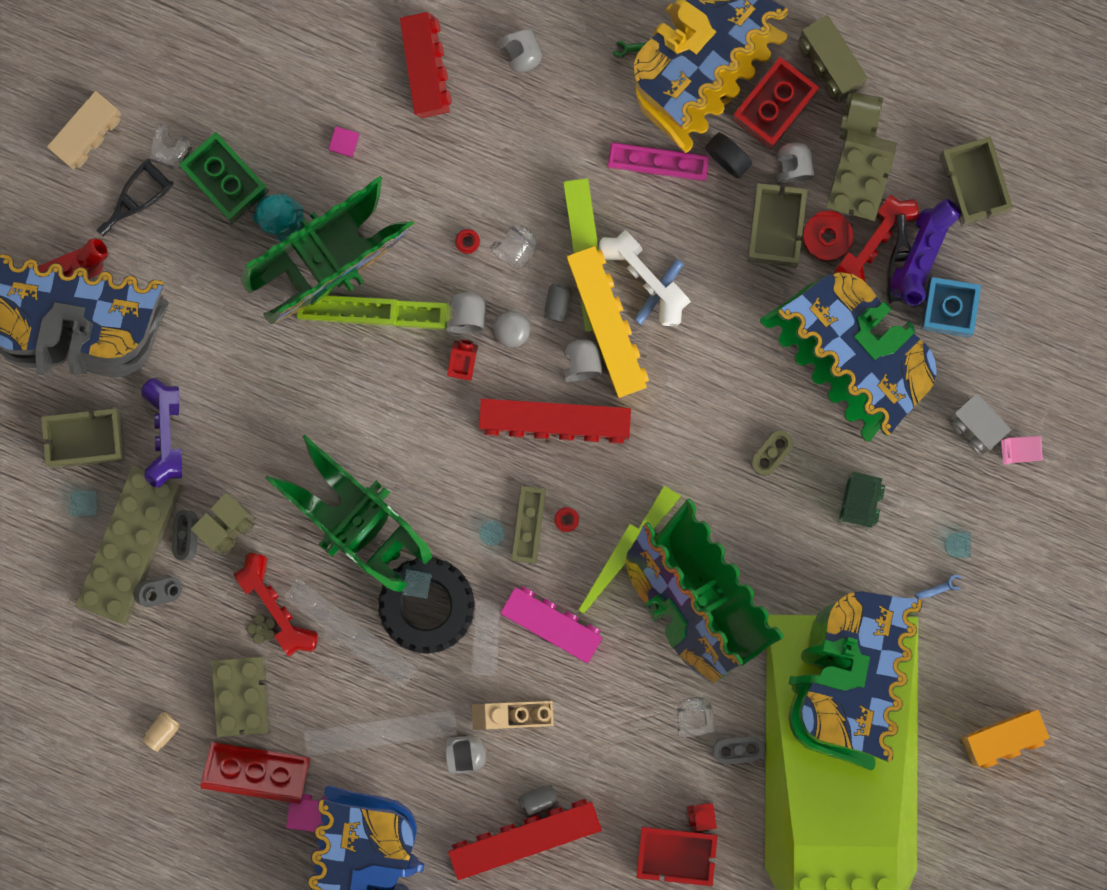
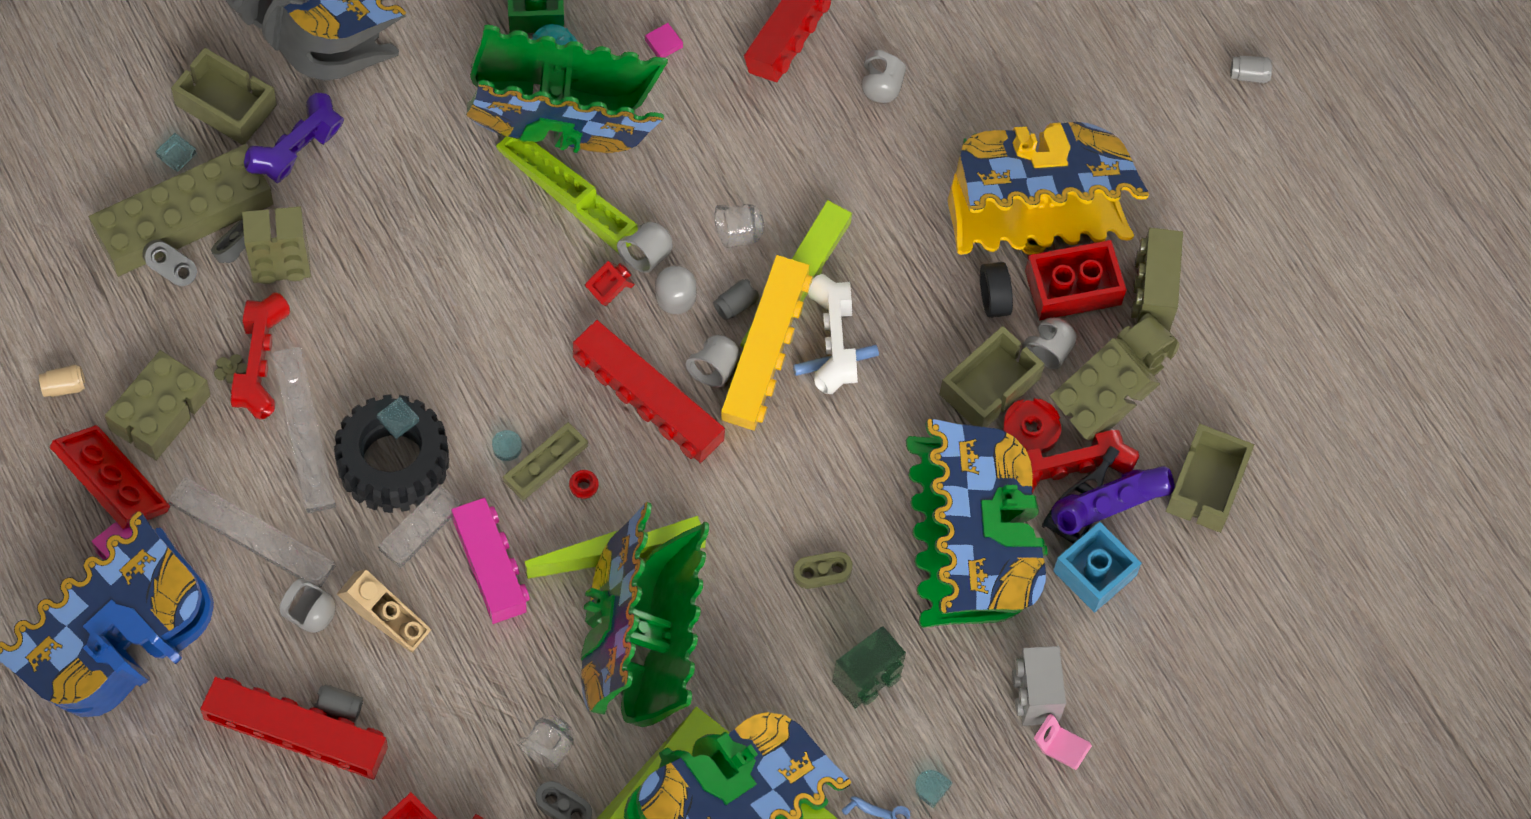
camera: 30 degrees right, 20 degrees down
(355, 520) = (396, 334): green animal -> none
(467, 233) = (700, 187): red plate -> none
(658, 161) = (928, 256): dark pink tile -> none

